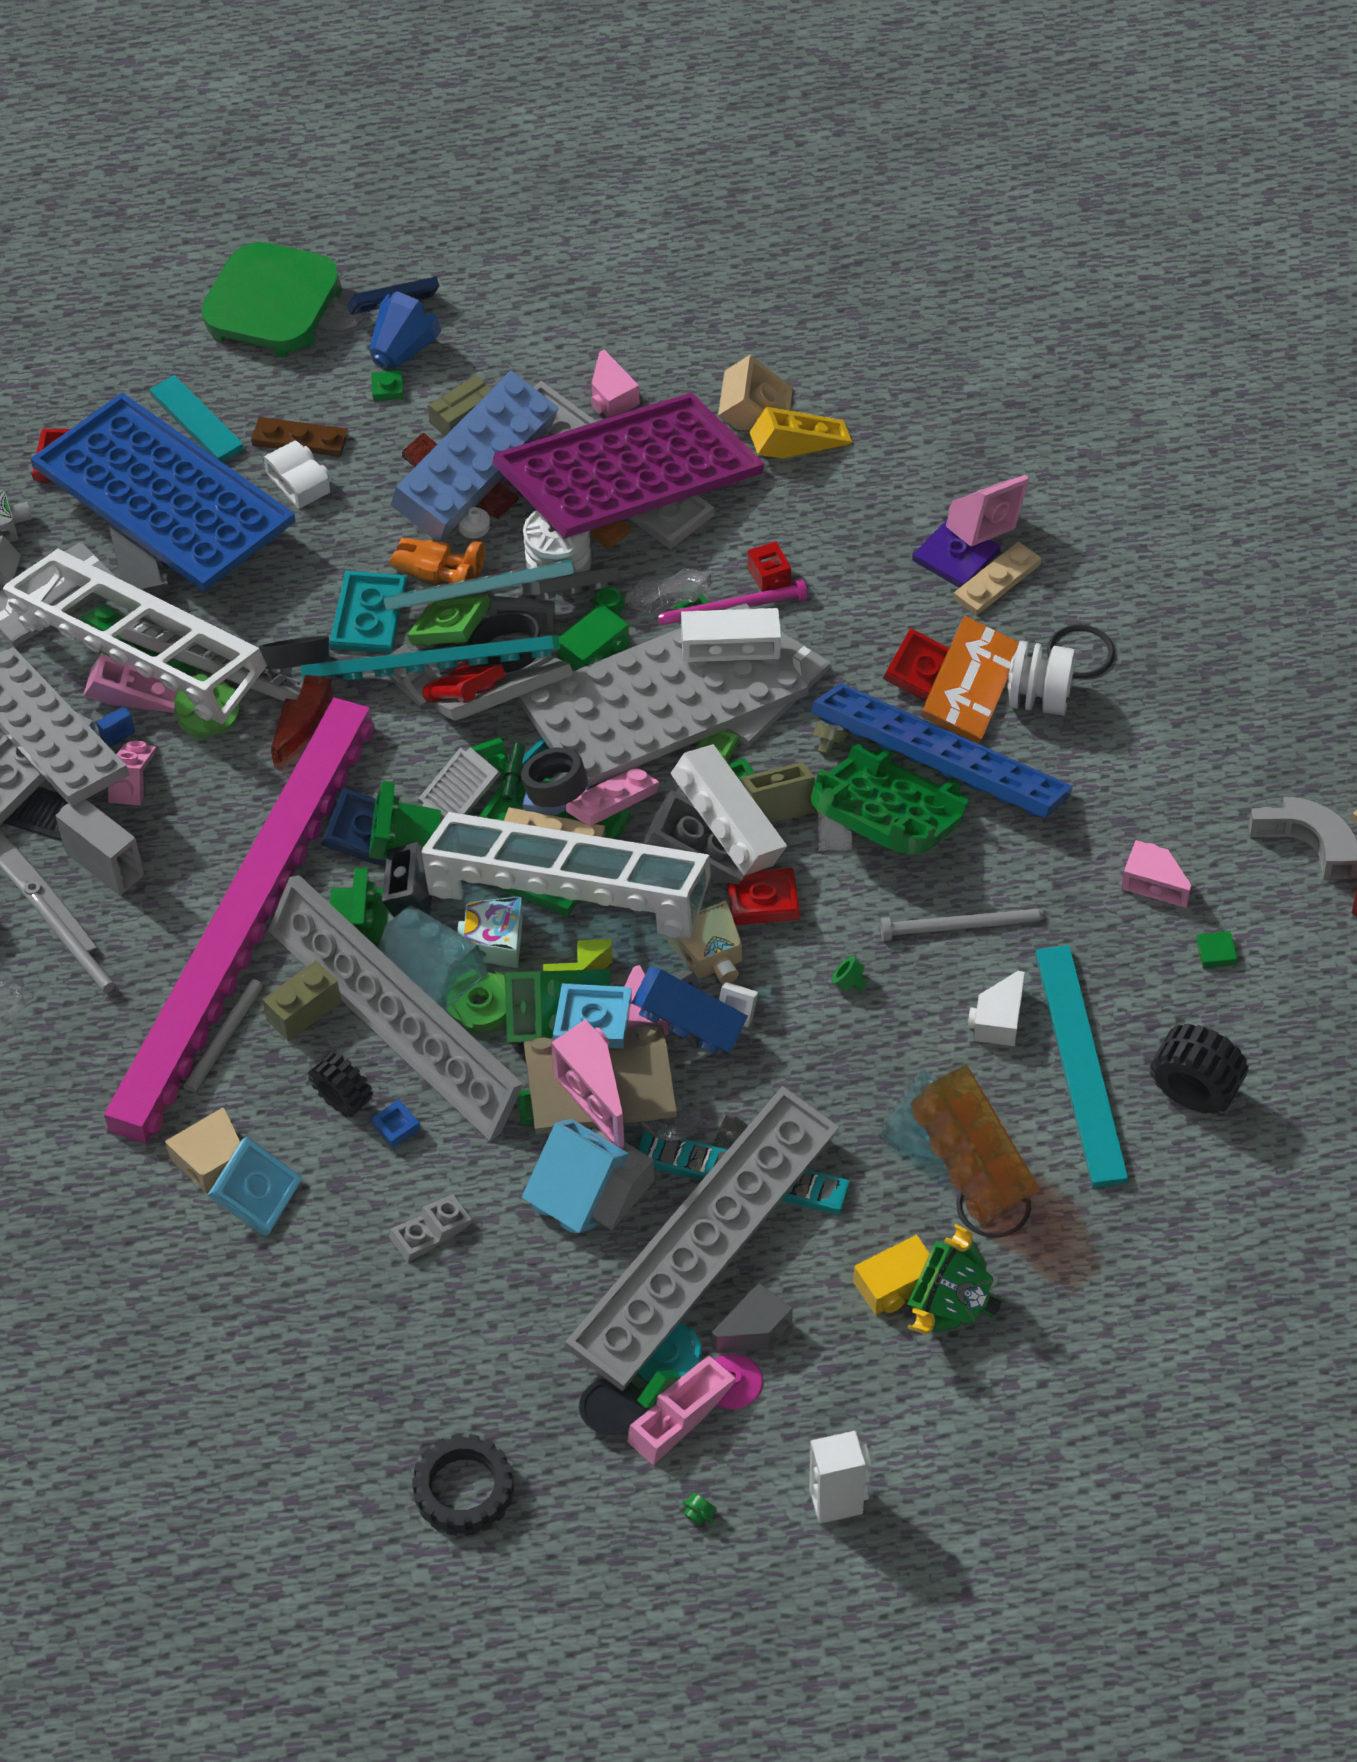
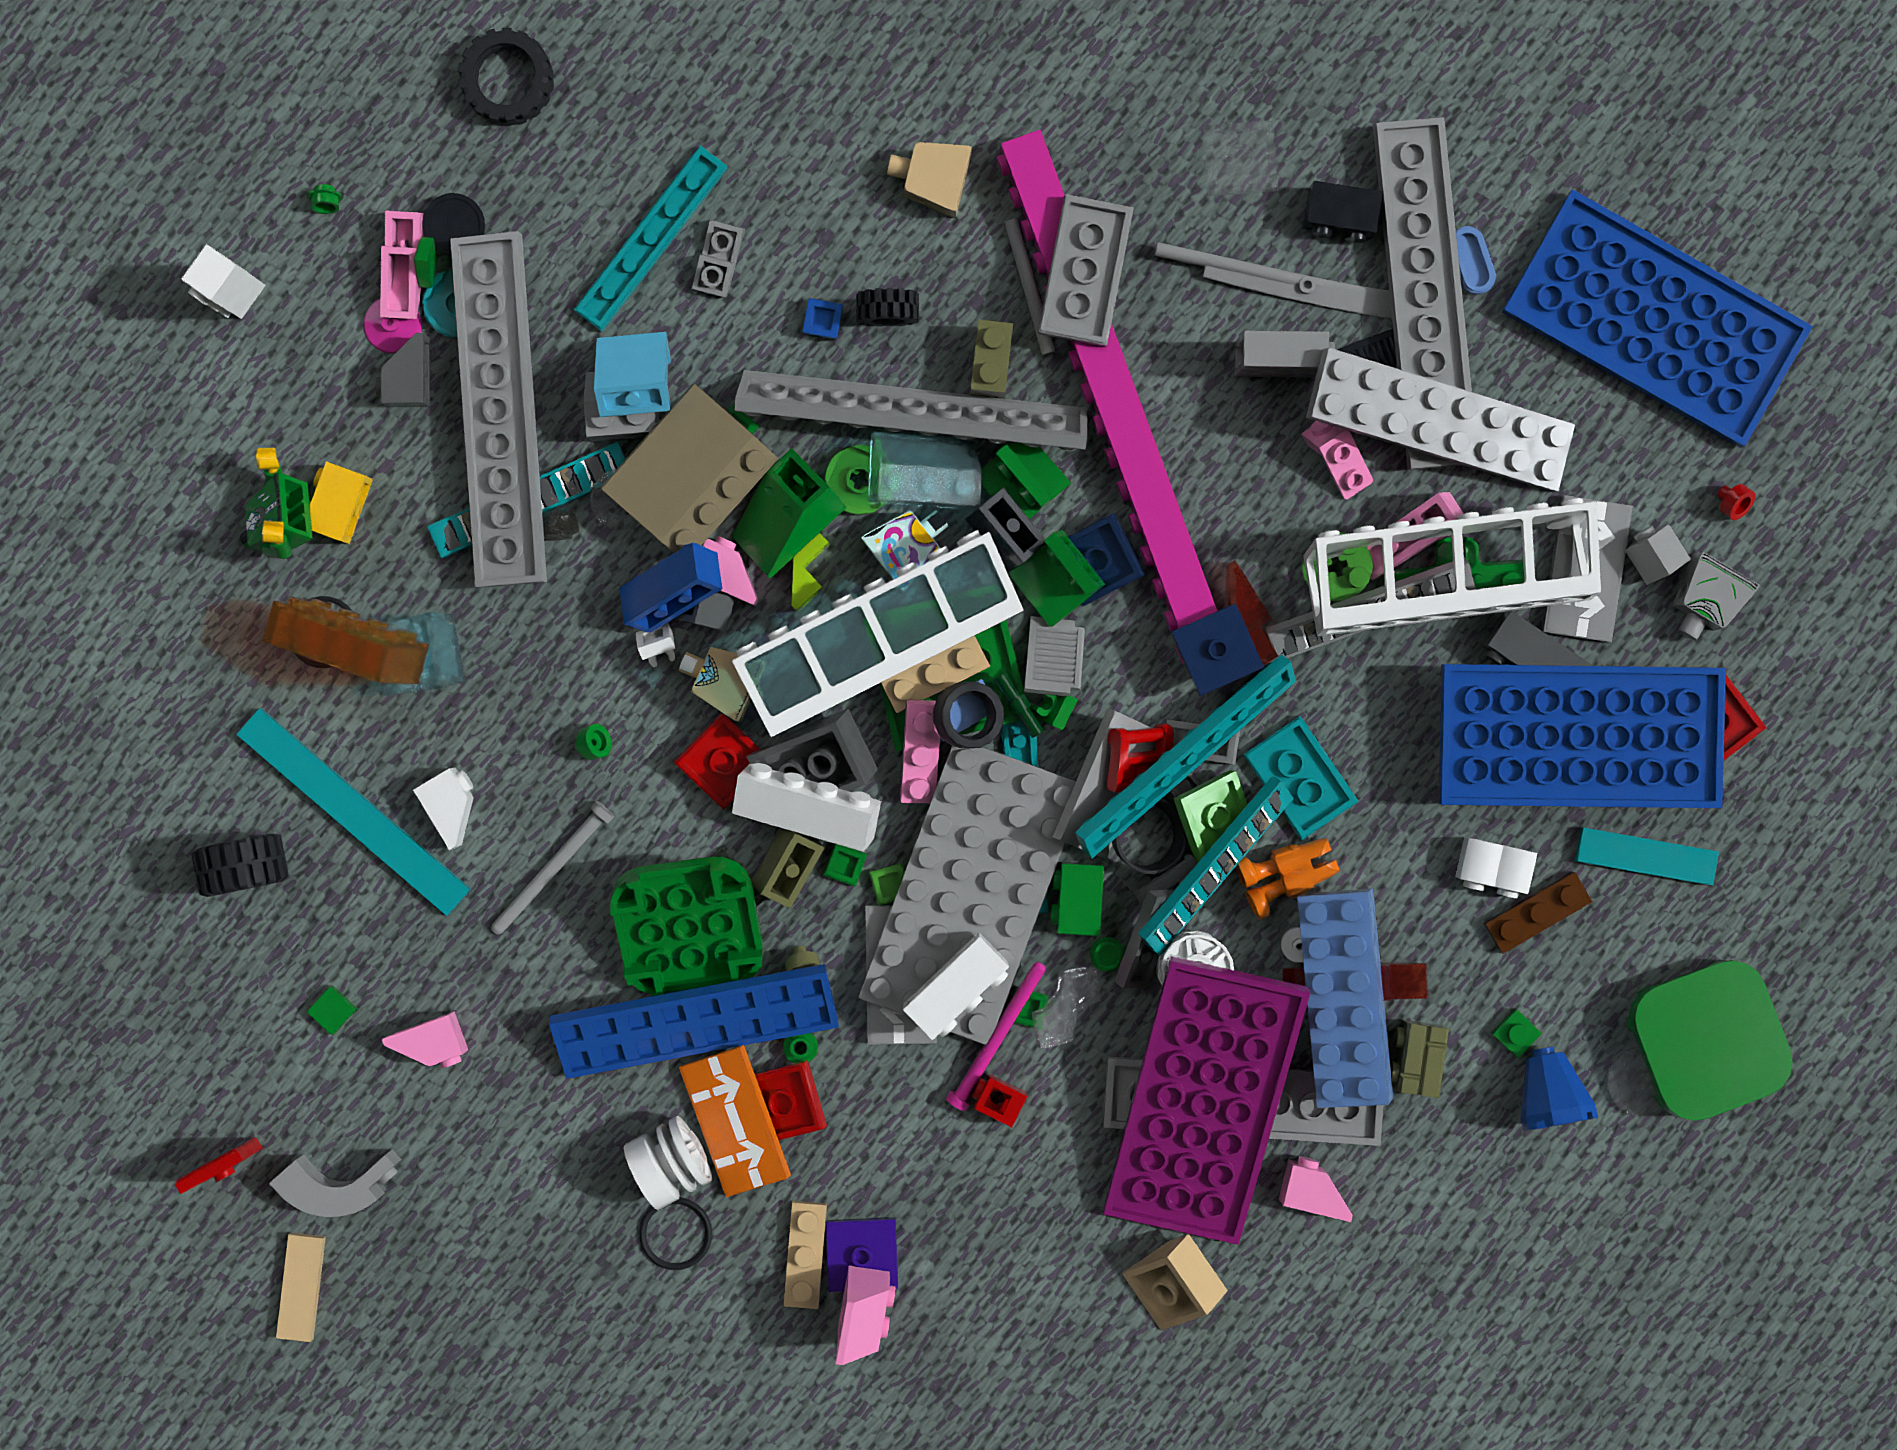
camera: 140 degrees right, 35 degrees up
(116, 726) = (1392, 483): blue plate -> none
(174, 994) = (1085, 270): none -> light grey tile
(255, 1186) = (872, 173): medium azure tile -> none
(295, 652) = (1325, 682): black tyre -> none
(341, 702) = (1217, 649): none -> dark blue plate
(372, 299) = (1600, 1132): dark blue tile -> none
(467, 1282) = (651, 238): none -> teal tile
(587, 1075) = (678, 444): bright pink slope -> none
(600, 1005) = (730, 510): medium azure plate -> none
(793, 433) = (1103, 1273): yellow slope -> none
(888, 696) = (812, 1048): none -> green plate

